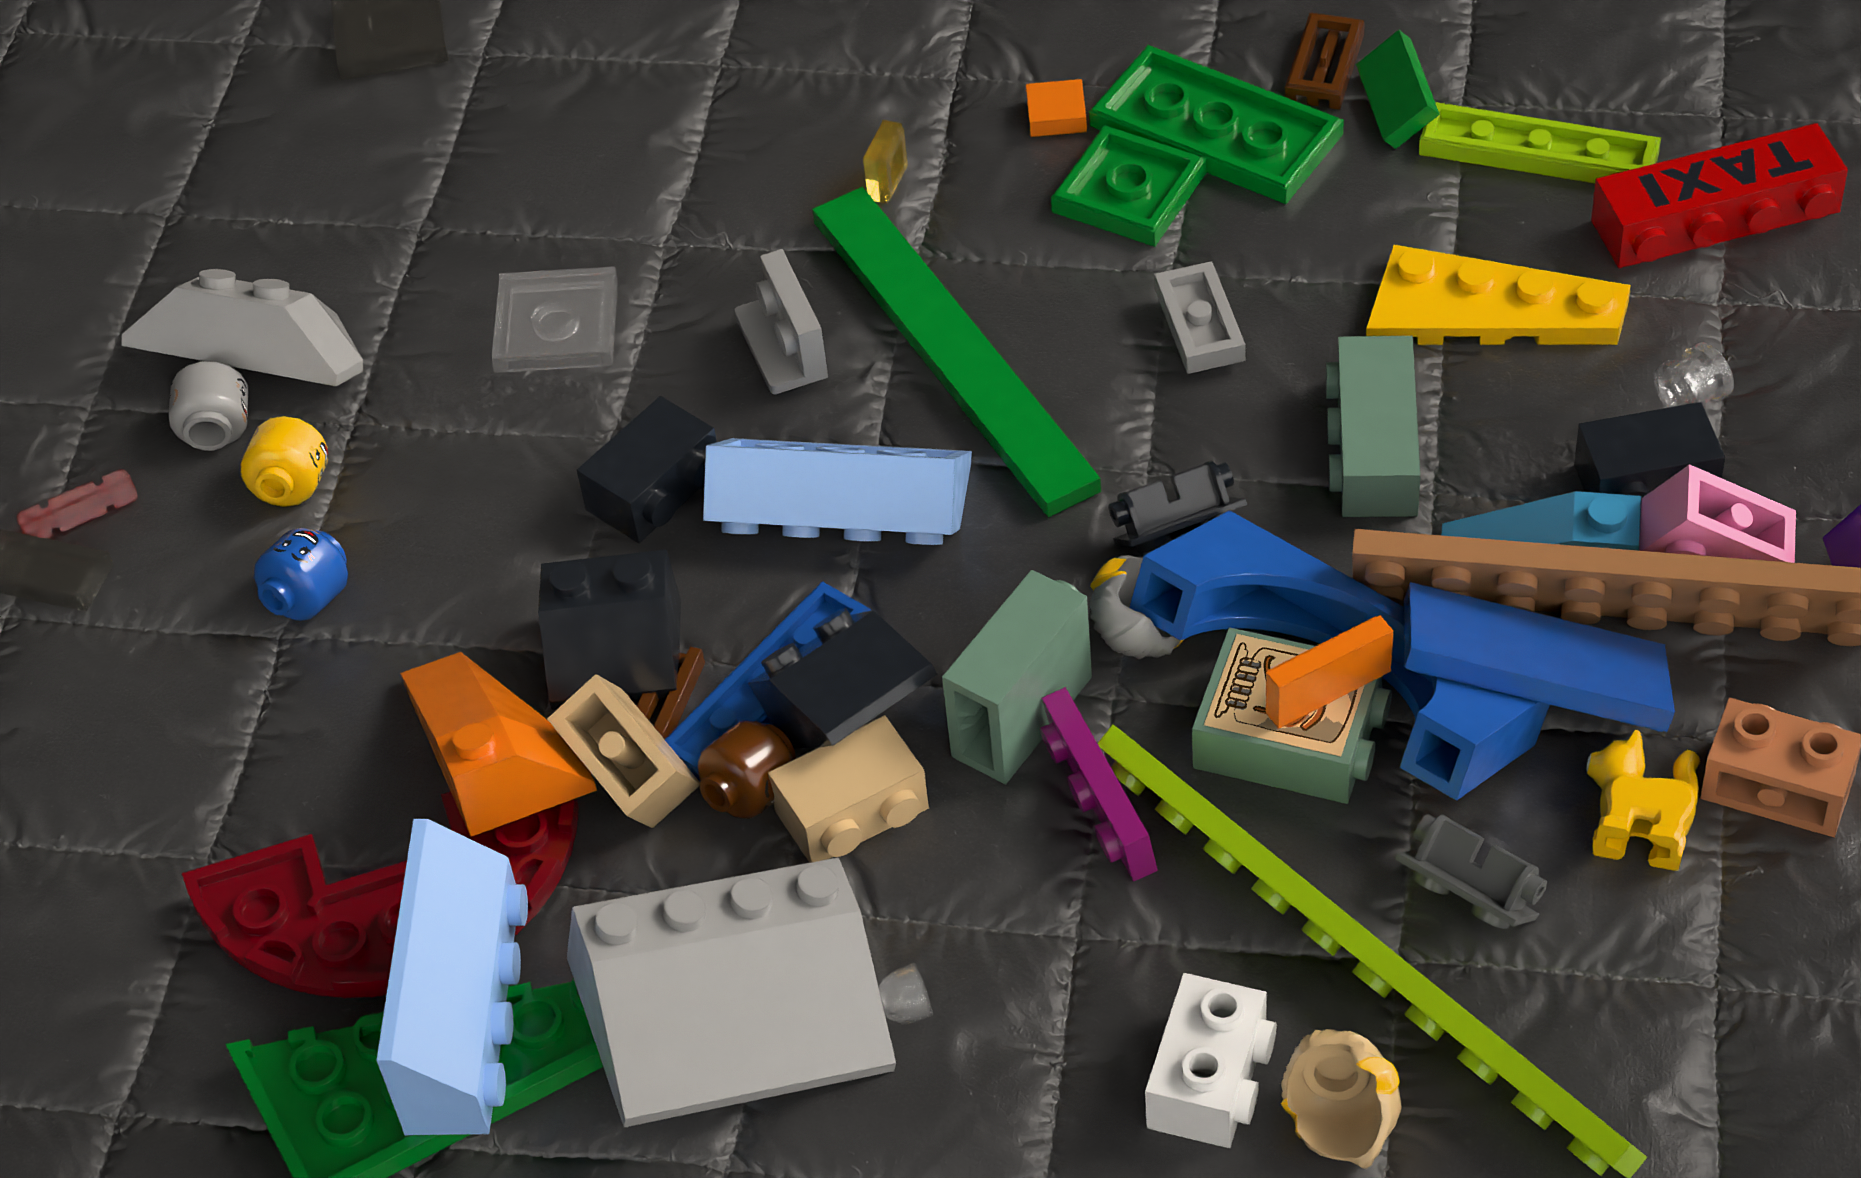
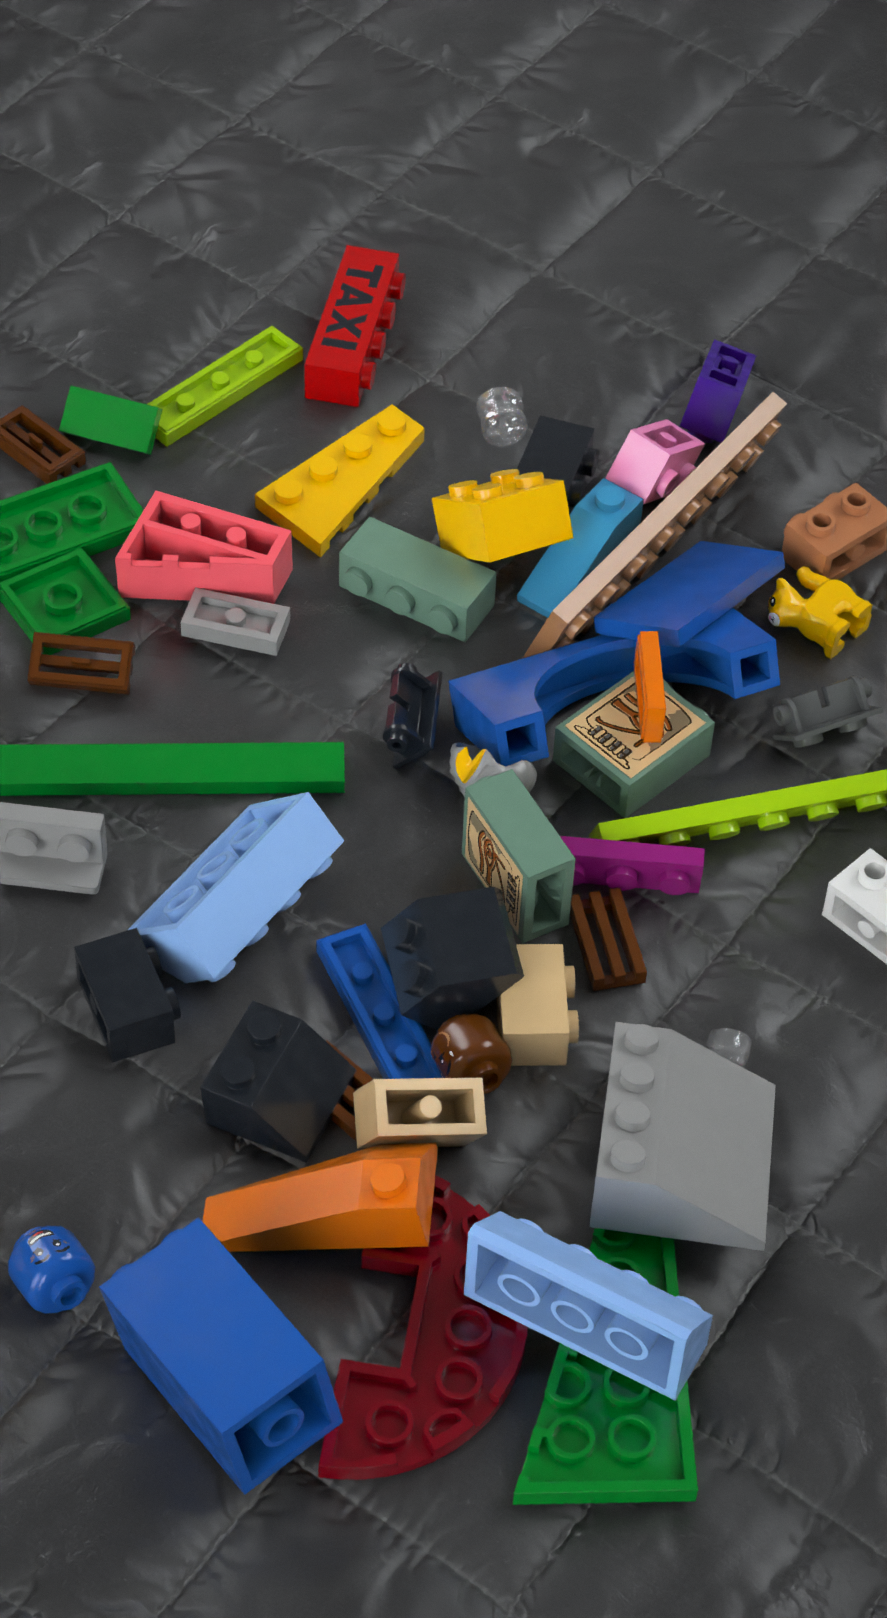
camera: 70 degrees left, 0 degrees up
(233, 726) = (222, 1354): none -> blue brick
(990, 814) = (598, 906): none -> reddish brown tile
(1067, 262) = (81, 682): none -> reddish brown tile
(1252, 232) = (202, 547): none -> coral wedge
(1492, 435) = (502, 515): none -> yellow brick

